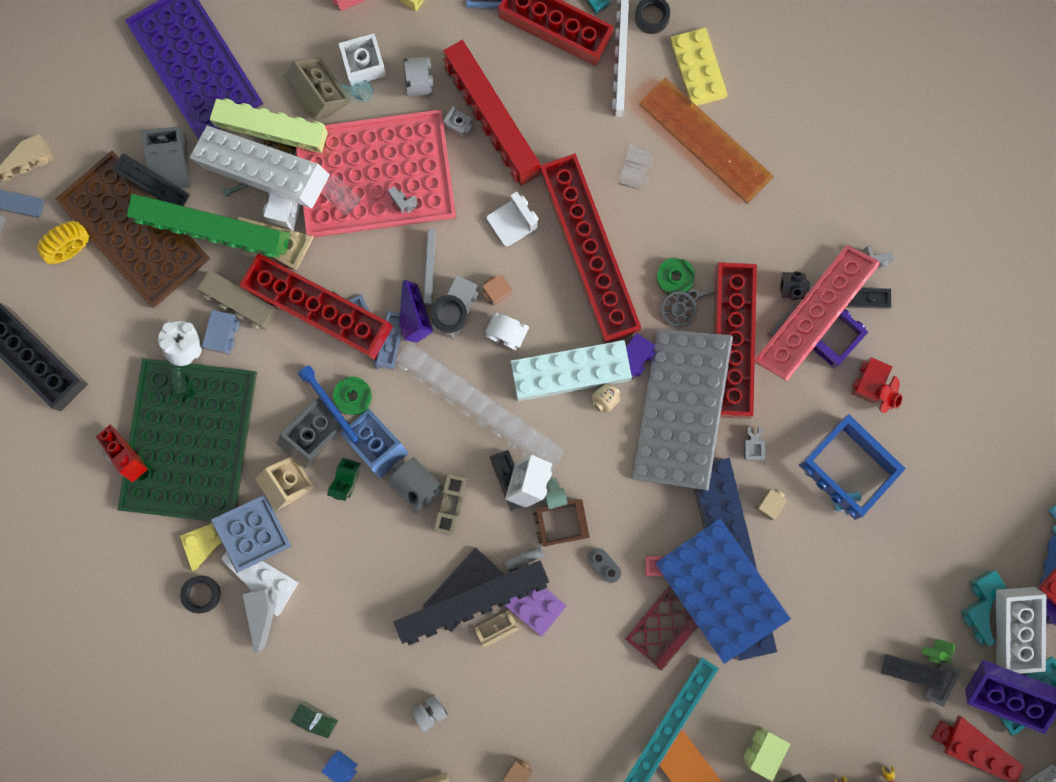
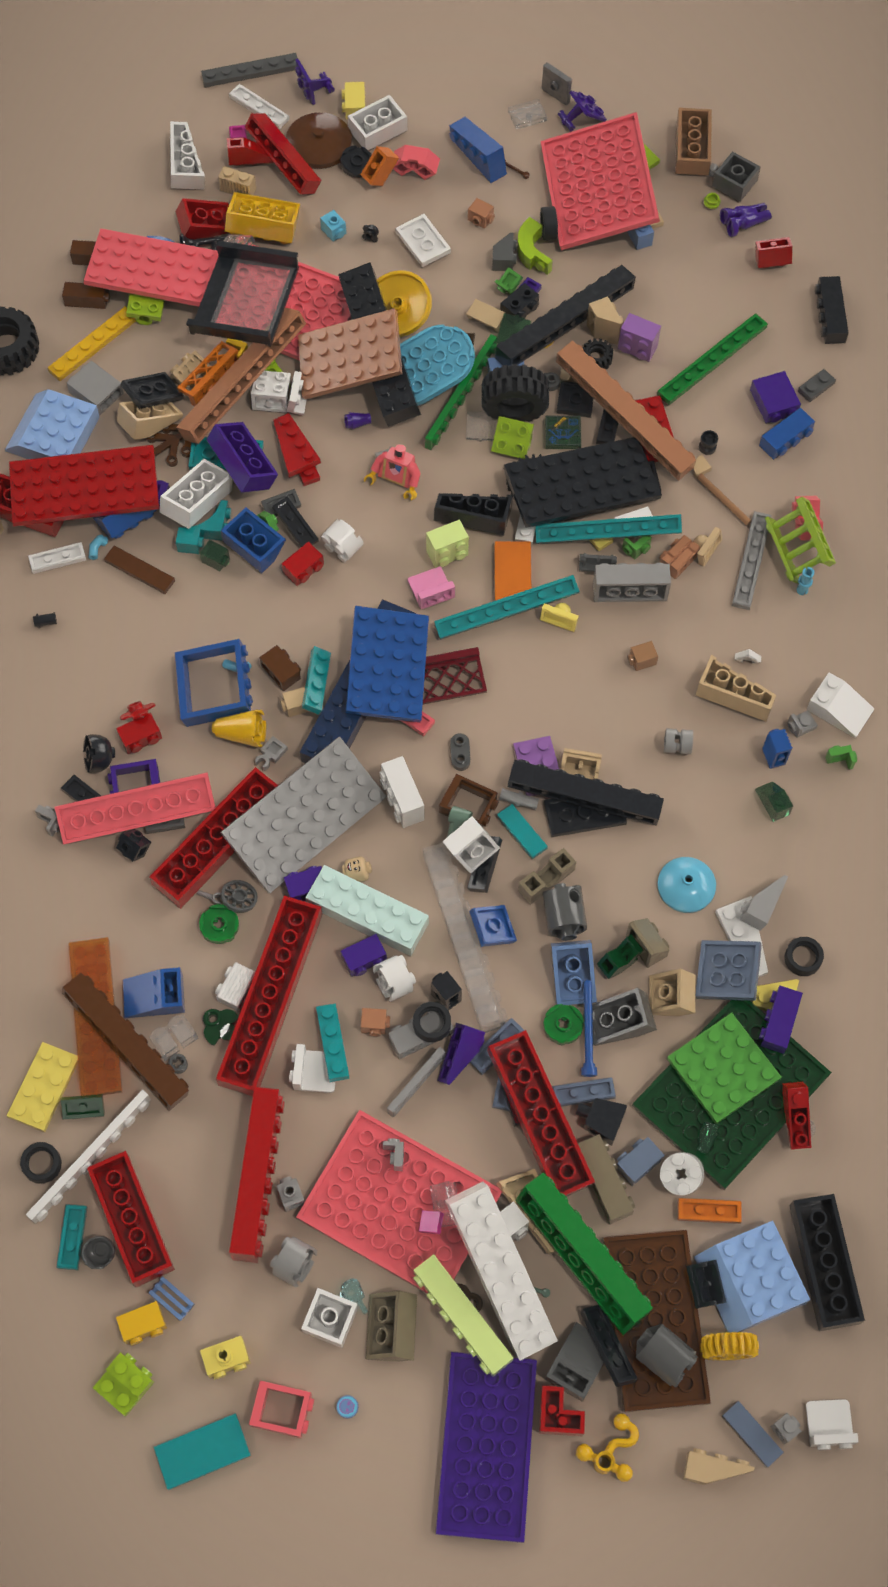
camera: 145 degrees left, 15 degrees down
(80, 307) = (755, 1278): none -> light blue slope
(87, 111) = (623, 1471): none -> yellow piece
(101, 199) = (665, 1354): none -> dark grey cylinder
(110, 276) = (706, 1284): none -> black hinge
(142, 335) = (709, 1210): none -> orange plate
(154, 109) = (555, 1419): none -> red brick
(181, 521) = (780, 1019): none -> dark purple brick
(202, 450) = (724, 1068): none -> bright green plate
(270, 344) = (602, 1118): none -> black torso
(300, 355) = (585, 1091): none -> sand blue tile
(309, 19) = (347, 1406): none -> tile
(331, 510) = (648, 938): none -> dark tan slope
(339, 172) = (431, 1222): none -> dark pink tile
(350, 584) = (685, 895): none -> medium azure dish
(458, 349) = (446, 990): none -> black brick
(463, 432) = (493, 925): none -> blue tile
(501, 533) = (522, 831): none -> teal tile
(515, 250) = (332, 1042): none -> teal plate
(545, 333) = (363, 955): none -> dark purple brick
(607, 203) = (222, 1027): none -> dark green plate
(616, 147) = (182, 1068): none -> dark grey bush
(617, 760) = (559, 616): none -> light yellow tile
(621, 238) = (235, 987): none -> white brick
(621, 487) = (402, 792): none -> white brick
(657, 71) = (82, 1106): none -> dark green plate
(667, 134) = (125, 1041): none -> reddish brown brick
(676, 187) = (154, 993): none -> blue slope
(748, 702) = (431, 587): none -> bright pink bracket
(770, 535) = (316, 680): none -> teal plate
(793, 446) = (242, 728): none -> yellow cone
(810, 525) = (280, 667): none -> reddish brown brick
(859, 685) = (342, 540): none -> white brick
(873, 638) = (303, 564): none -> red brick
(887, 337) = (98, 753): none -> black cylinder
(934, 626) = (253, 539): none -> blue slope
(953, 587) = (215, 555): none -> clear green brick
(1004, 526) = (139, 569): none -> reddish brown tile
(1036, 421) = (45, 619): none -> black pin

